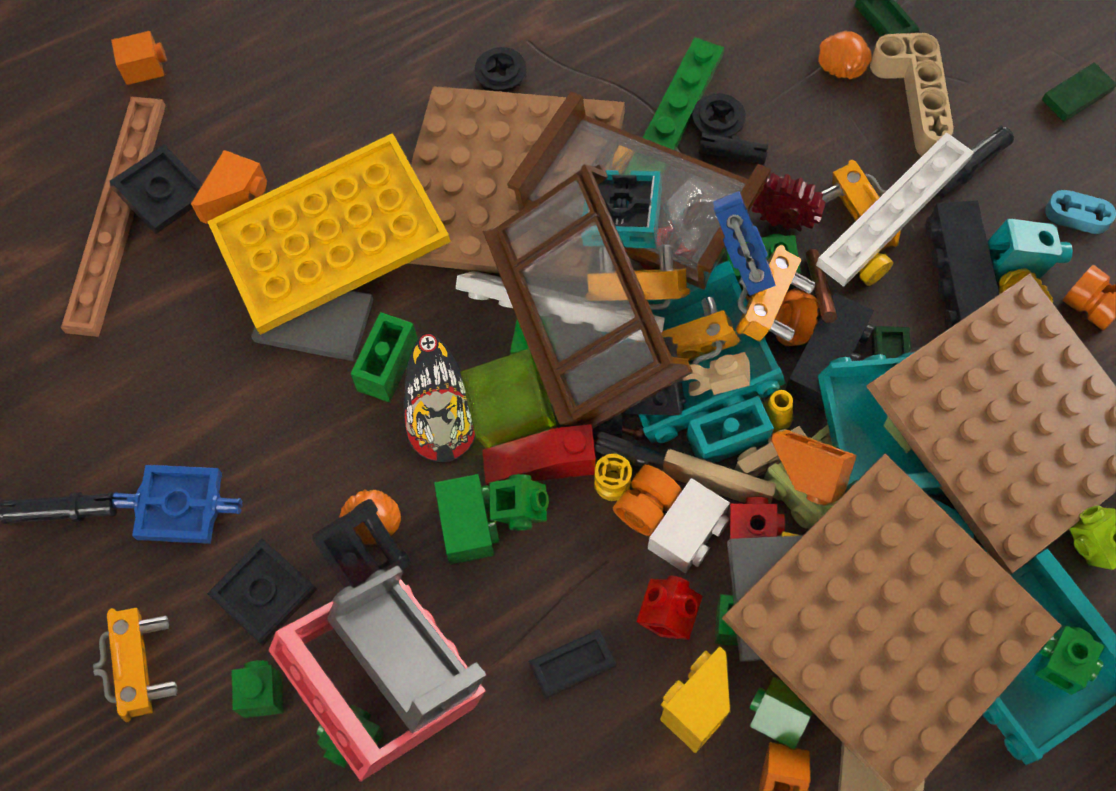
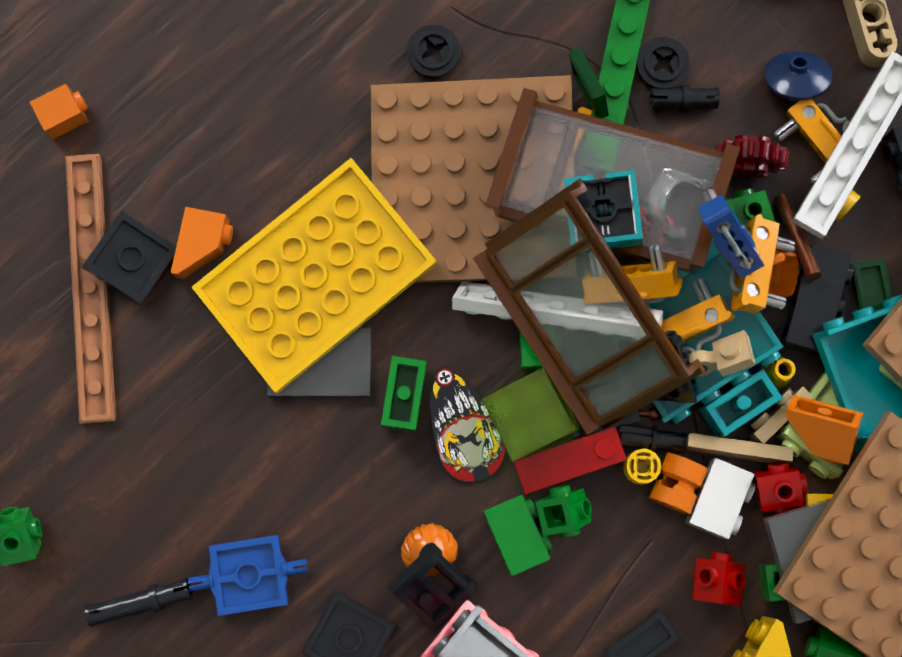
camera: 15 degrees left, 15 degrees up
(639, 112) = (588, 83): none -> dark green tile
(850, 146) = (798, 75): none -> dark blue dish

